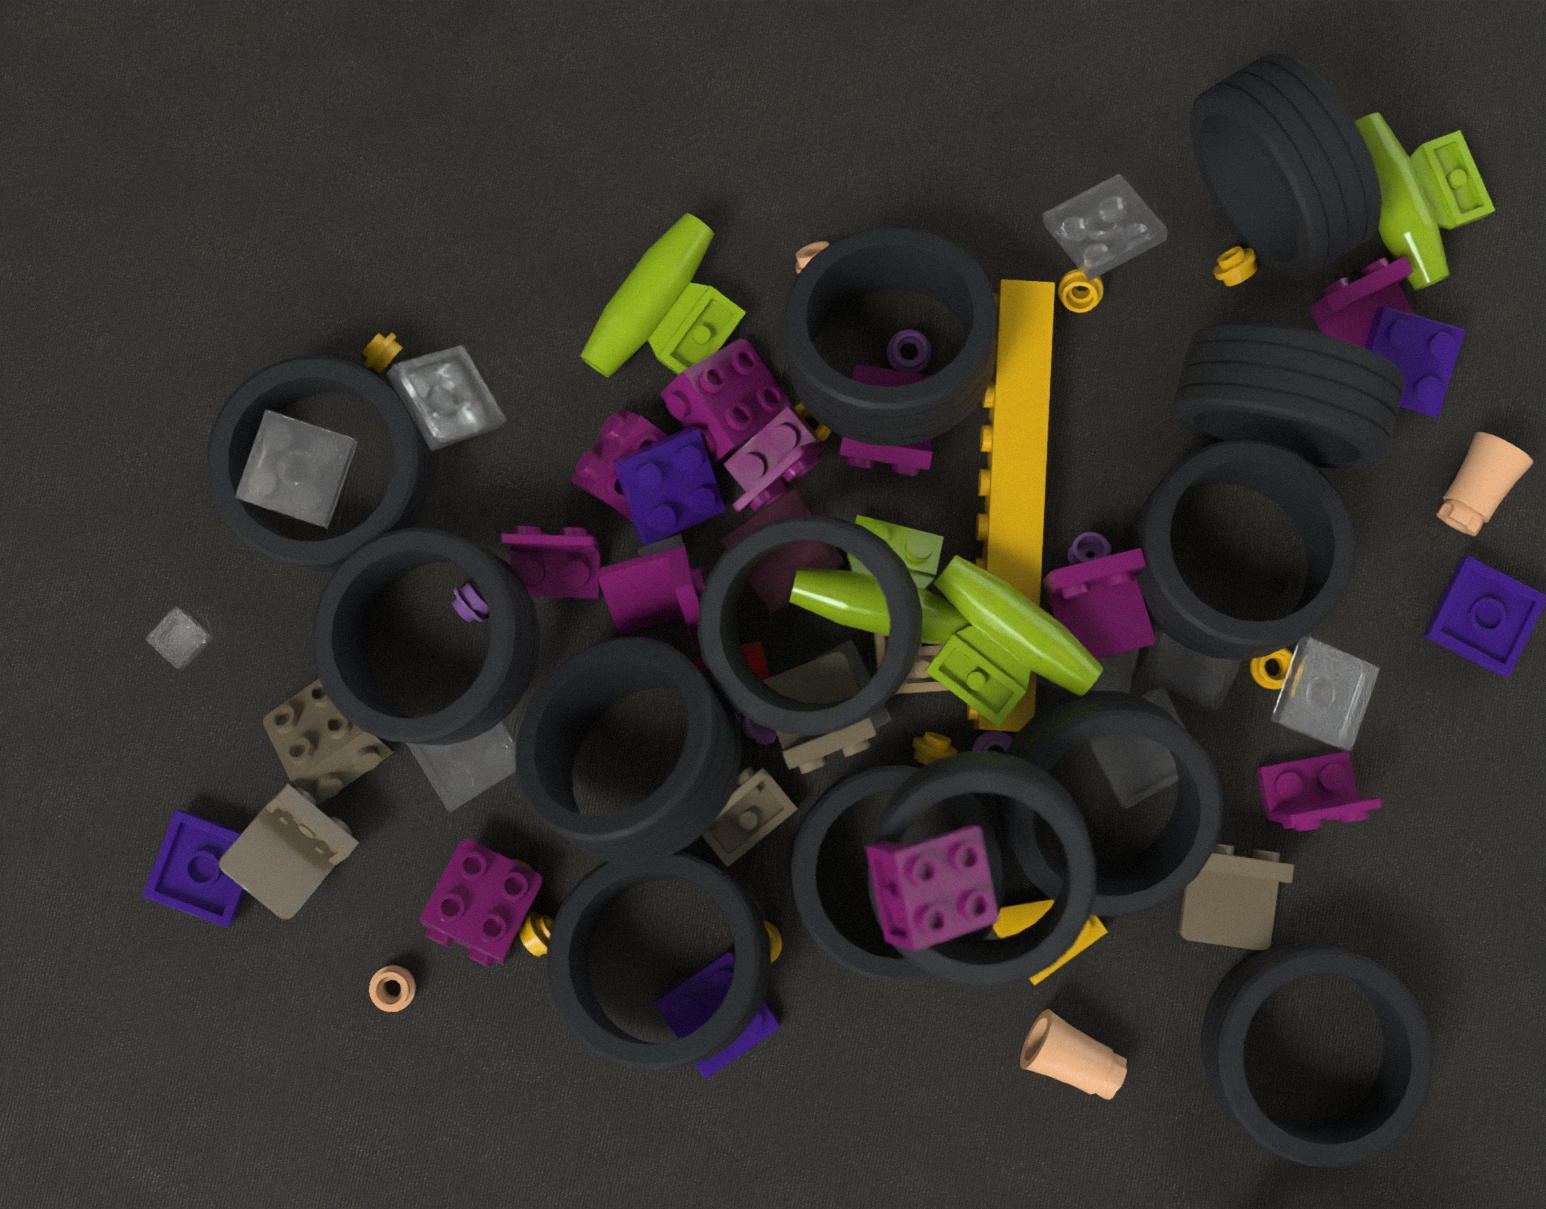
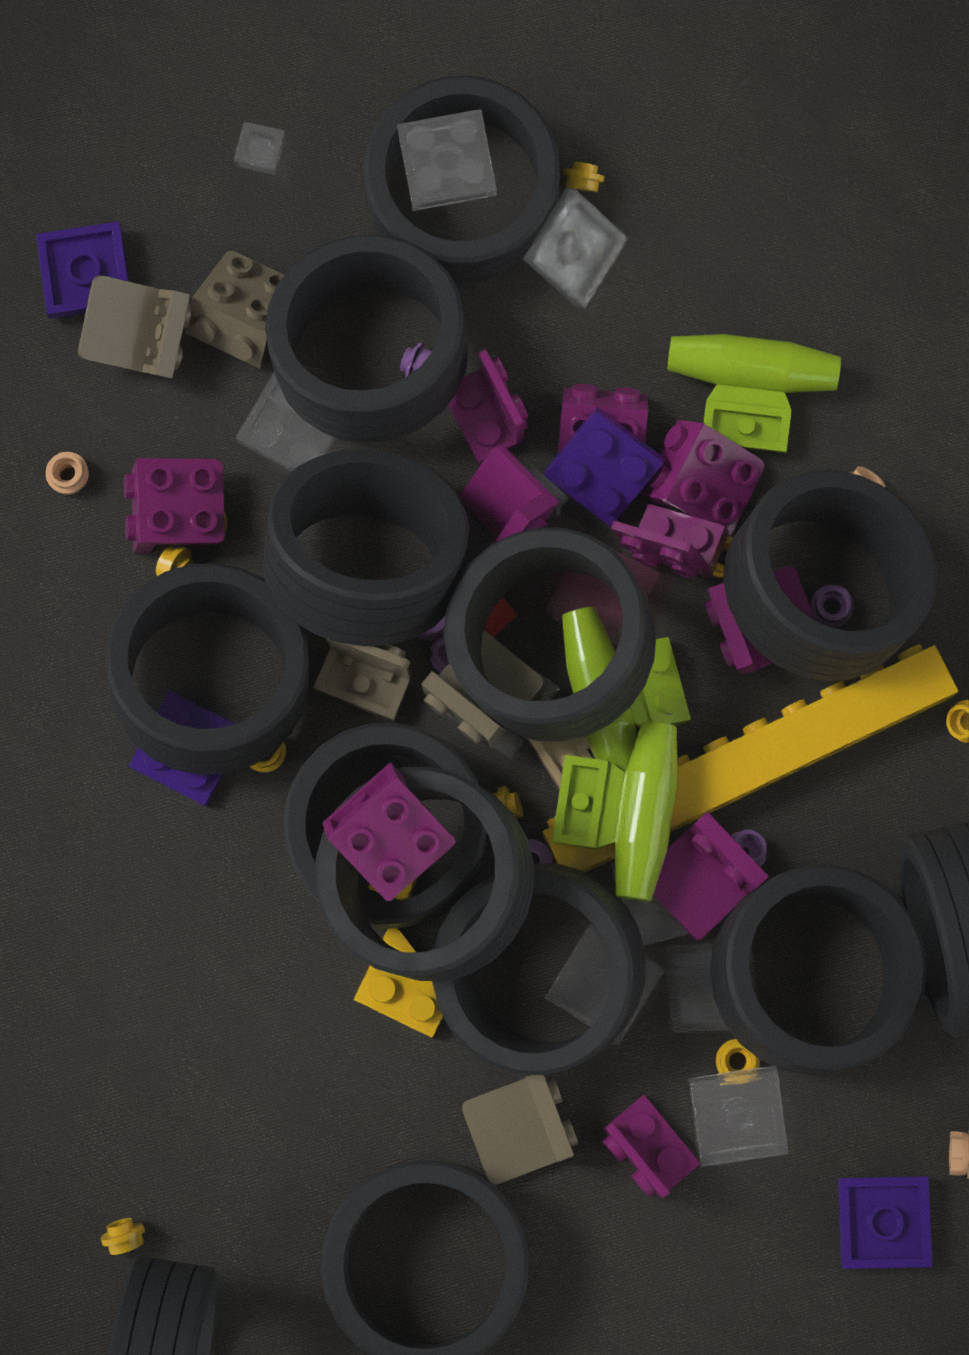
camera: 70 degrees right, 5 degrees down
(1072, 1057) = (310, 1063): light nougat plant -> none

